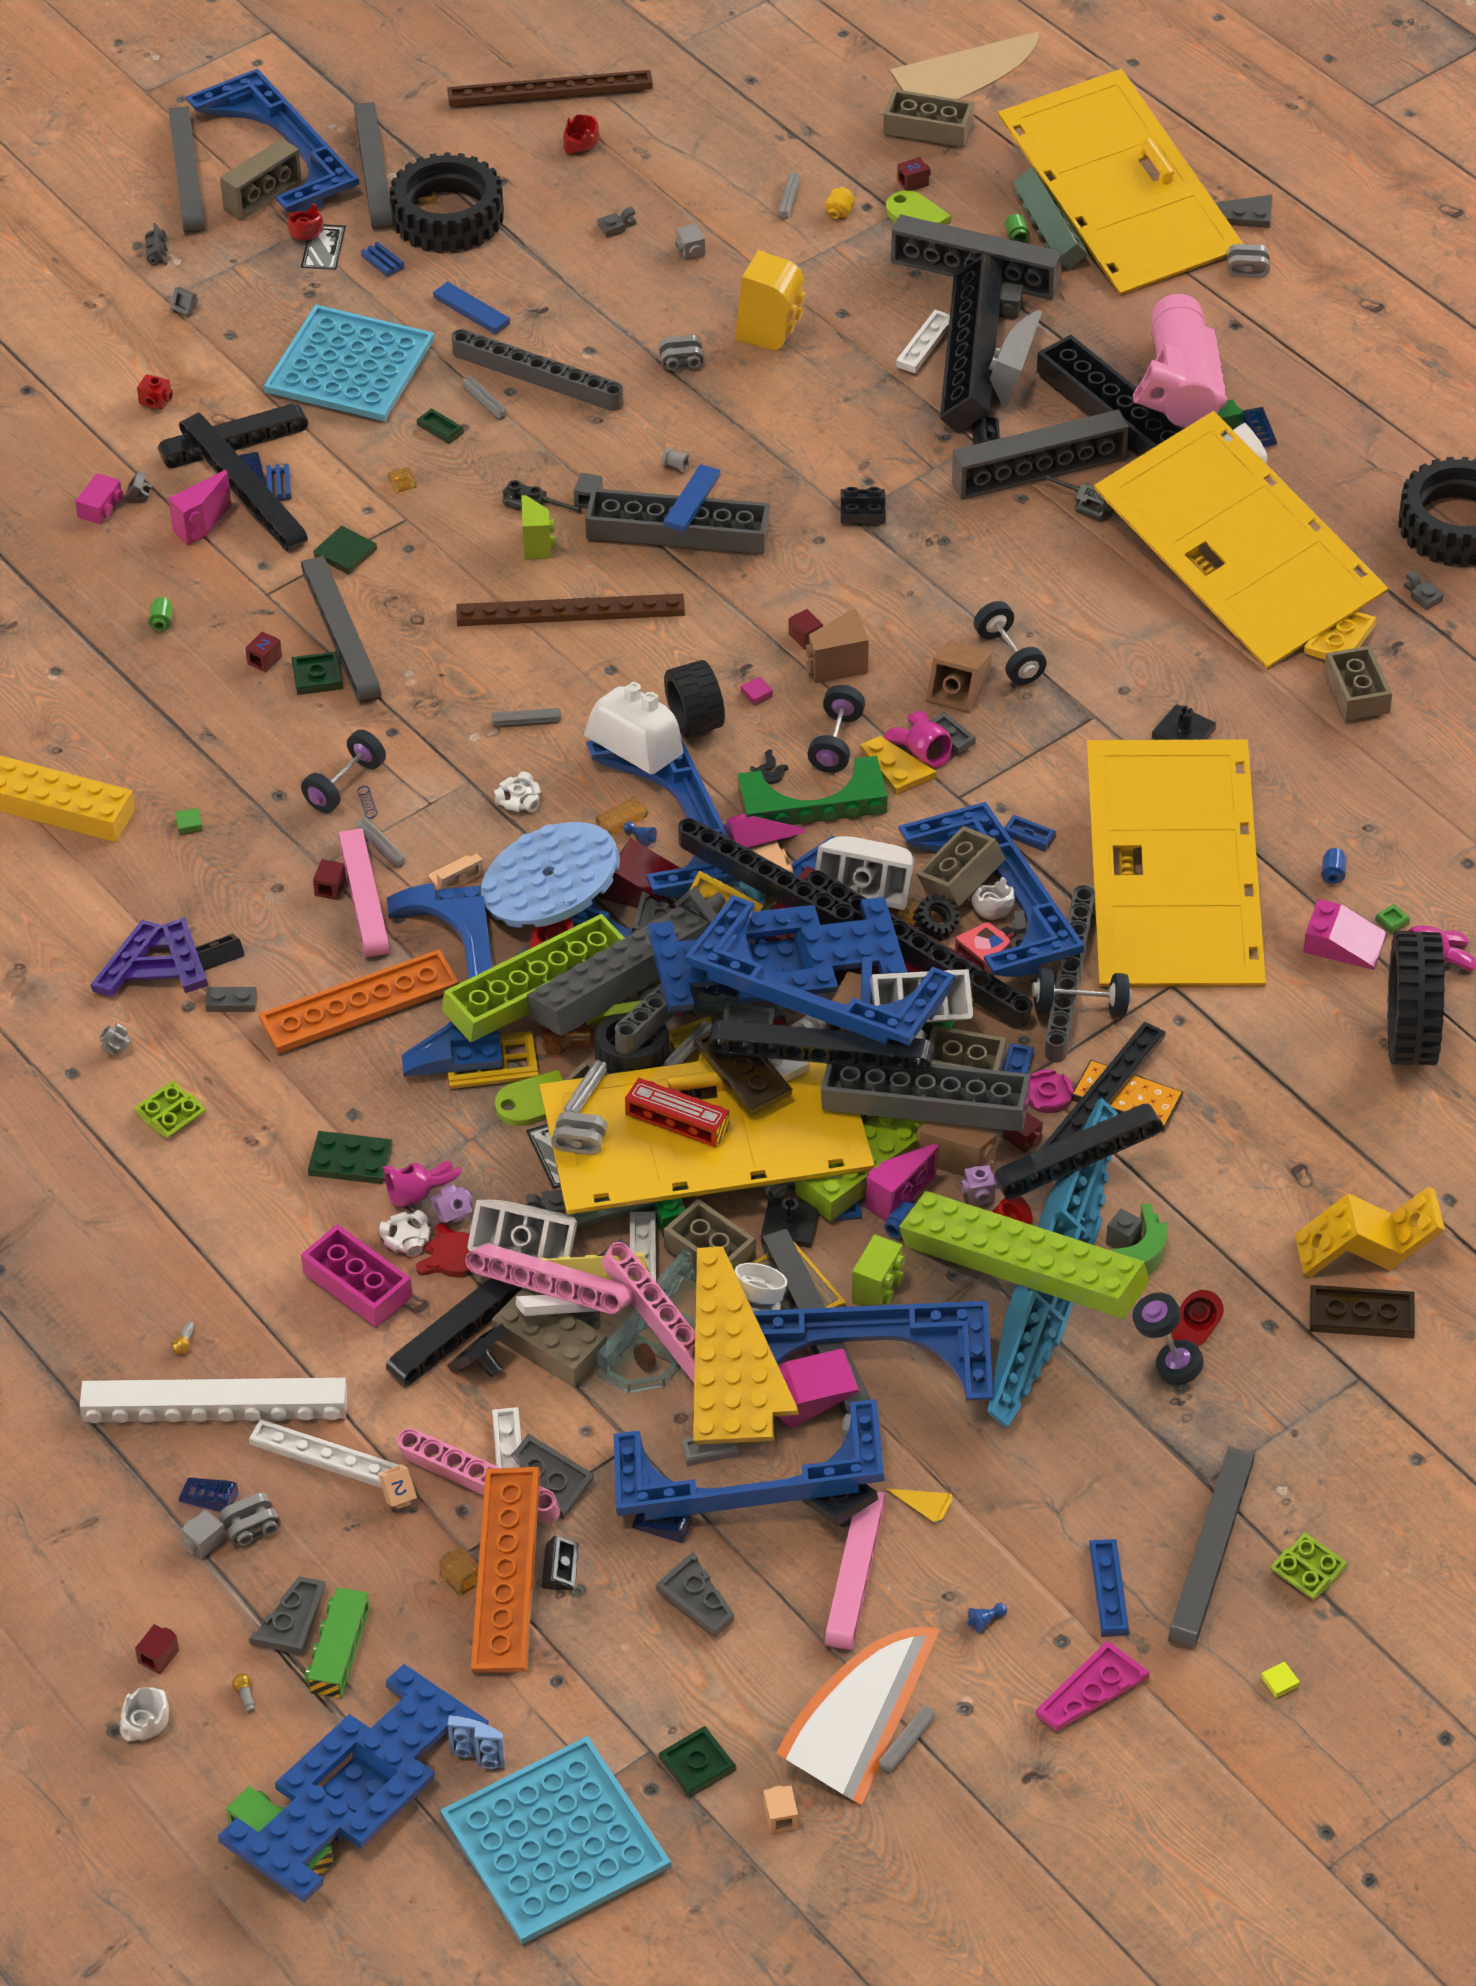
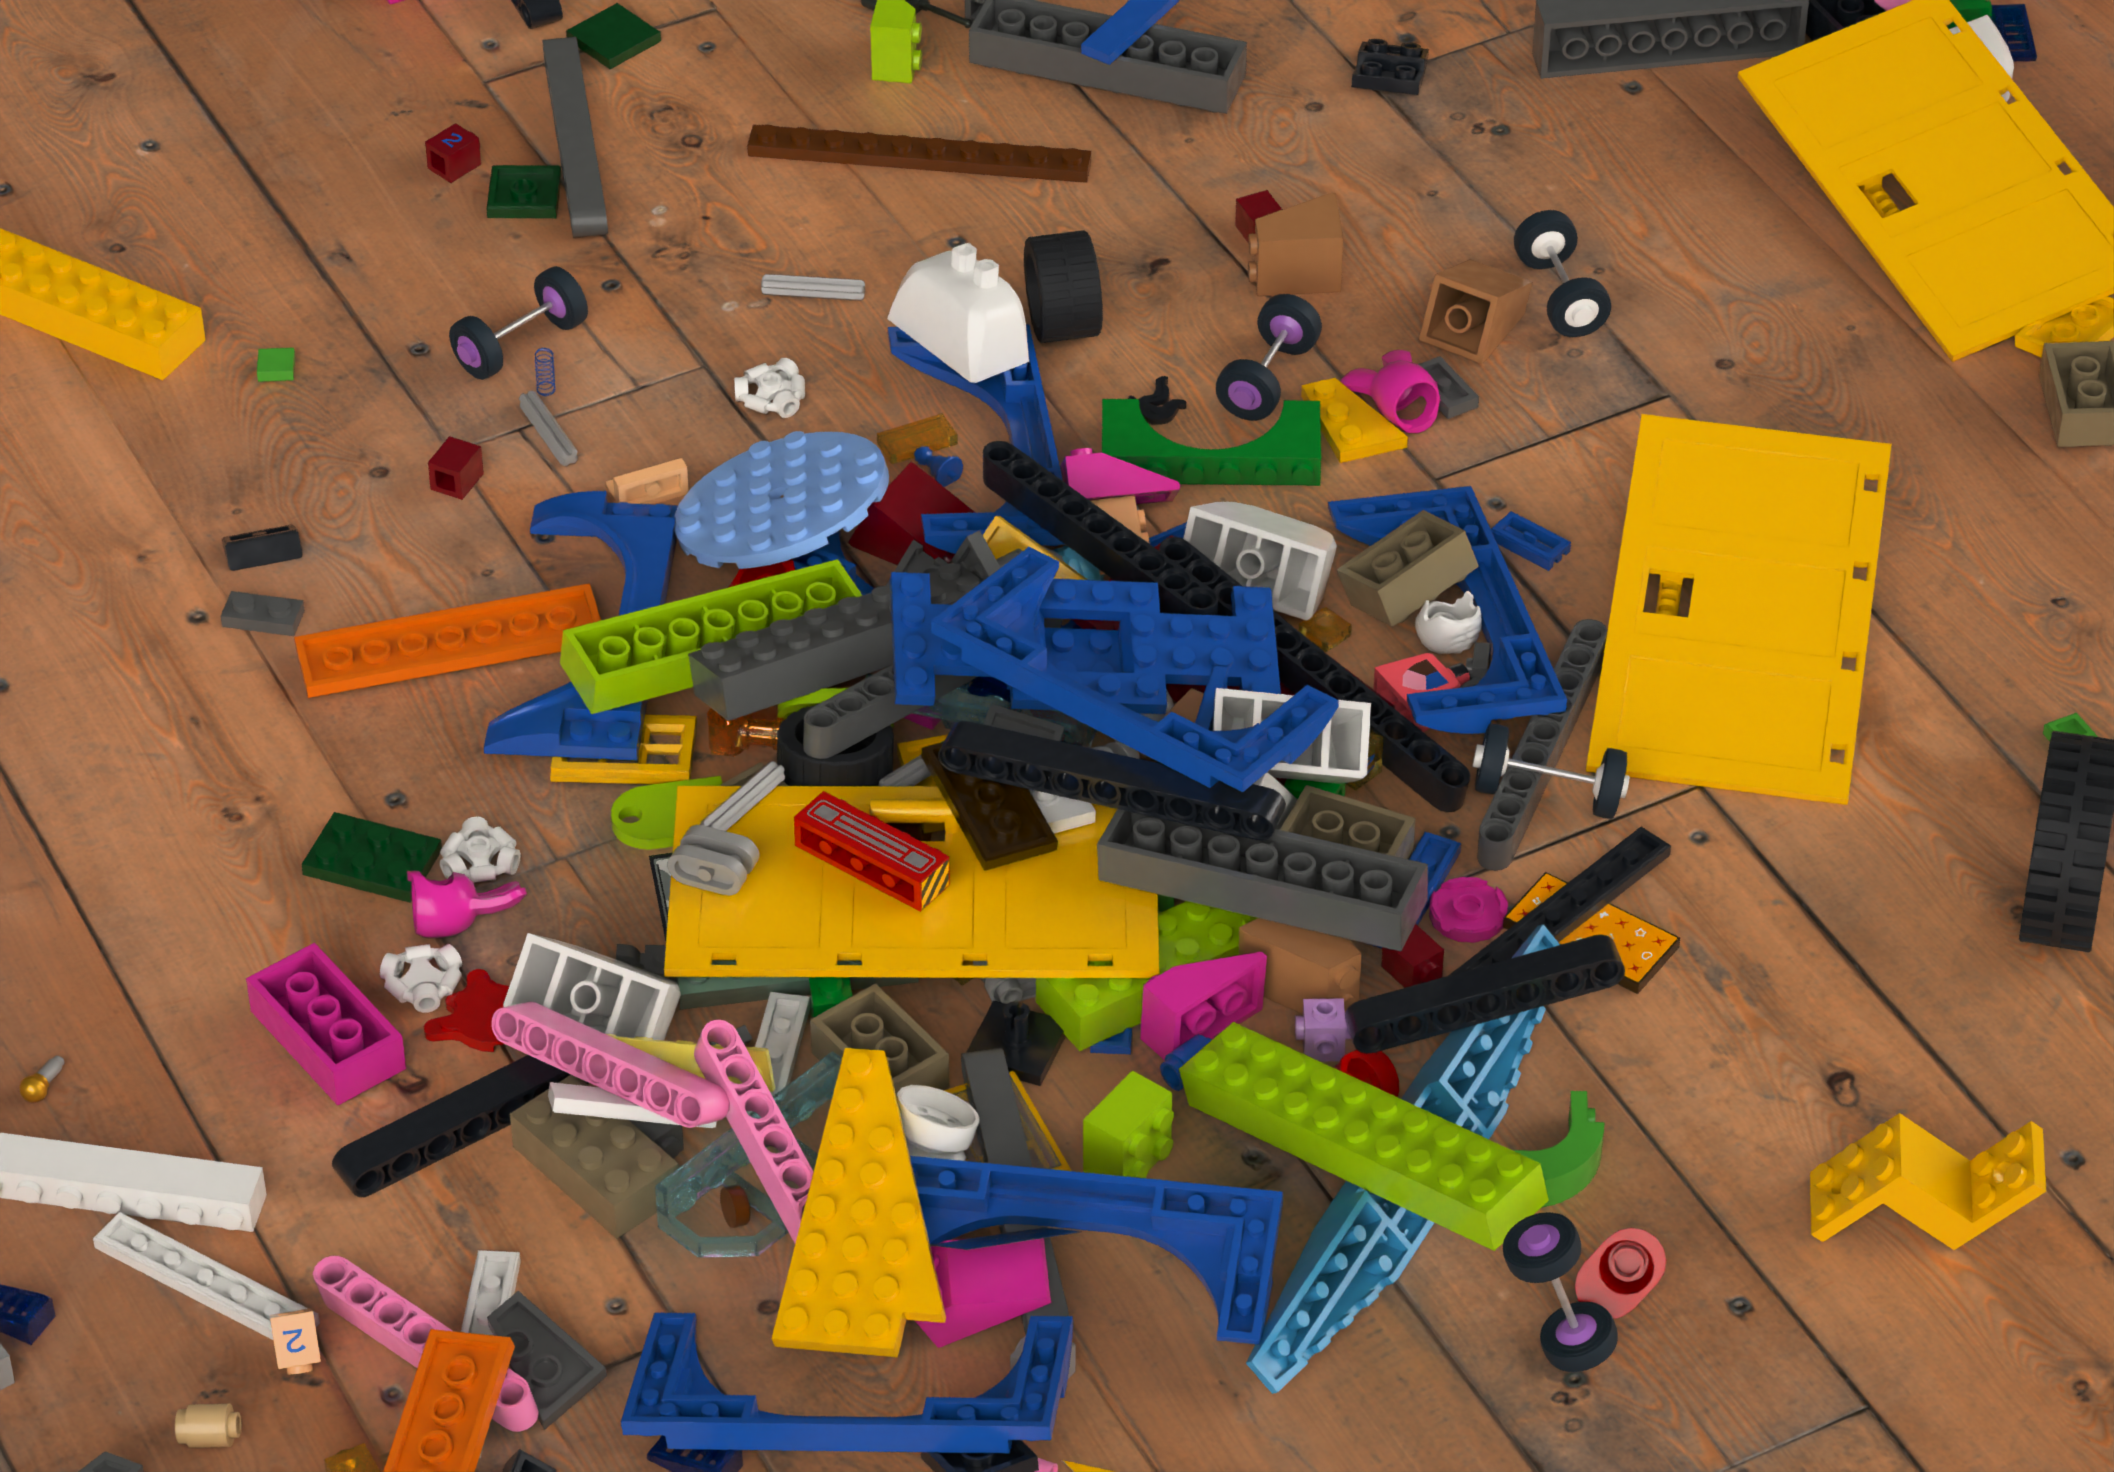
camera: 10 degrees right, 5 degrees down
(114, 1039) = (70, 643): light grey gear -> none
(131, 964) = (134, 543): dark purple plate -> none
(160, 614) = (320, 86): bright green brick -> none
(169, 1109) = (122, 752): lime slope -> none
(249, 1519) = (56, 1355): light grey brick -> none
(357, 1549) = (207, 1425): none -> tan brick
(364, 893) = (501, 493): bright pink beam -> none
(417, 1140) = (478, 845): none -> white piece
(452, 1204) = (487, 941): lavender brick -> none
(480, 1351) = (481, 1161): black tile -> none
(704, 1453) = (797, 1363): light grey tile -> none
(756, 690) = (1165, 294): dark pink tile -> none
(824, 1356) = (1005, 1238): none -> black sticker
(942, 907) = (1365, 623): black tyre -> none
(1086, 495) = (1728, 93): pearl dark grey piece -> none
(1124, 1230) = (1535, 1124): dark grey brick -> none
(1183, 725) = (1806, 415): black tile -> none
(1334, 866) = (1992, 646): blue brick -> none
(1343, 935) = (1983, 746): dark pink slope -> none
(1362, 1311) = (1893, 1304): dark brown tile -> none

